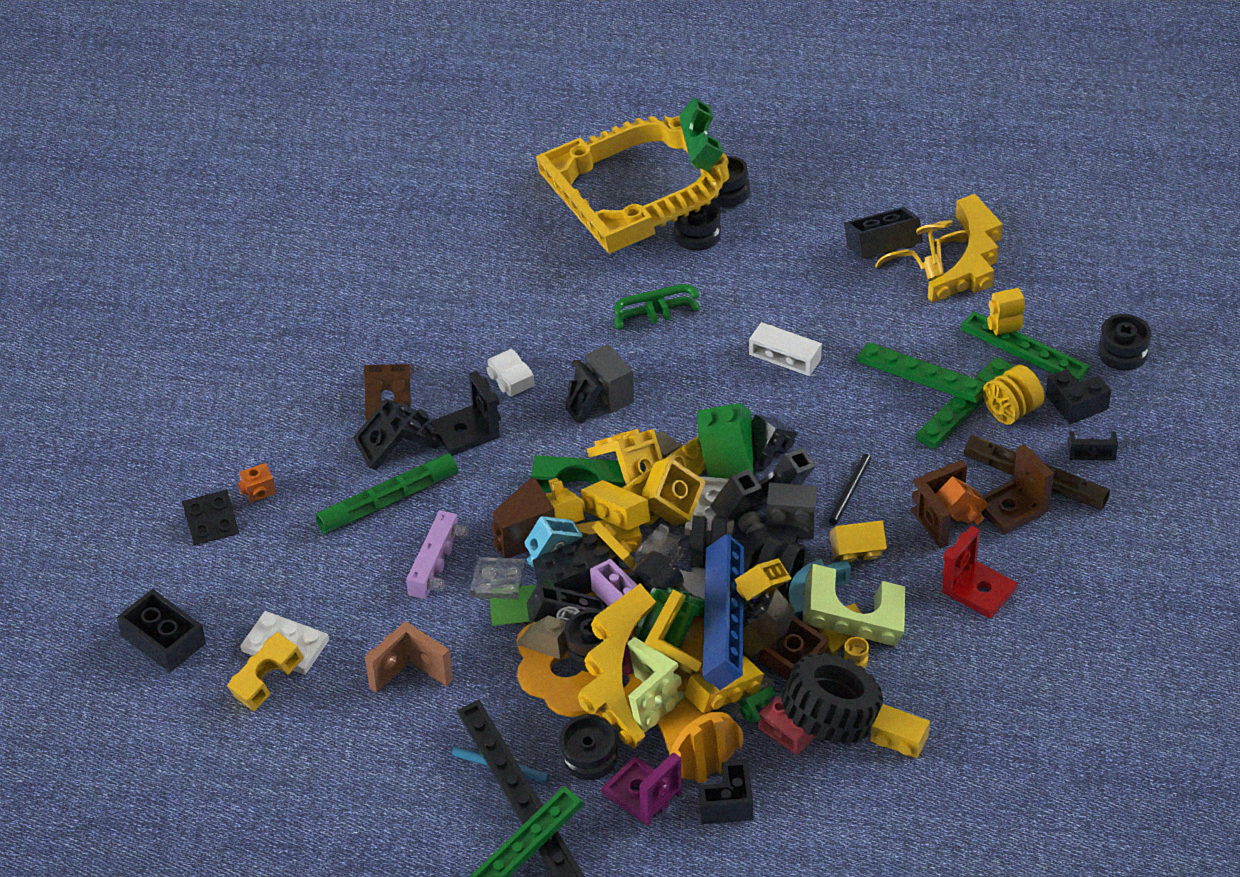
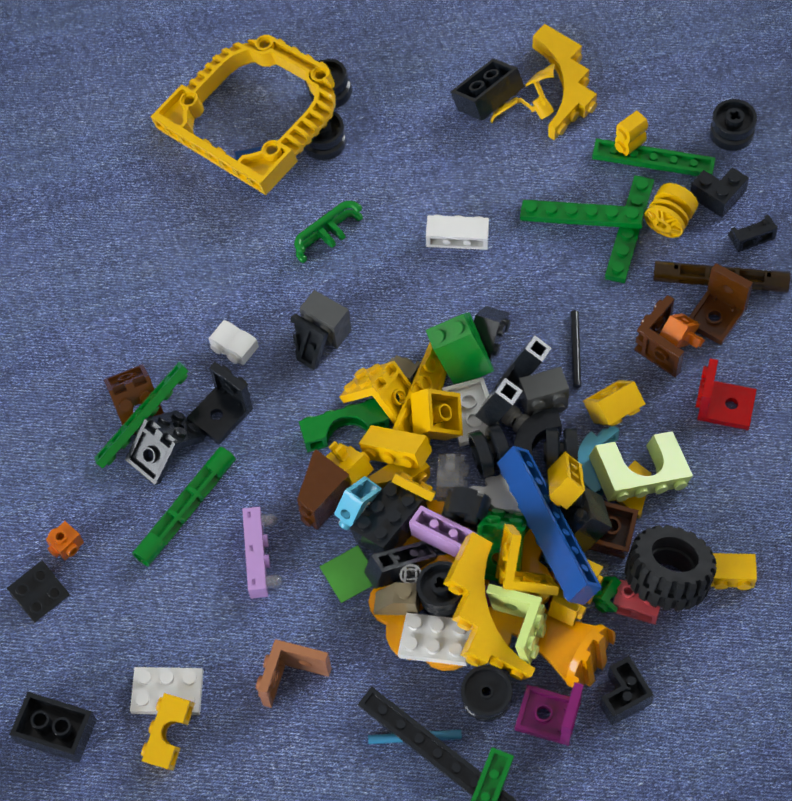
camera: 20 degrees left, 15 degrees up
(394, 394) = (146, 409): none -> green plate
(497, 578) = (324, 554): clear plate -> none
(557, 680) = (432, 639): none -> white plate
(702, 148) = (286, 41): green arch -> none
(857, 650) = (658, 505): yellow wheel -> none

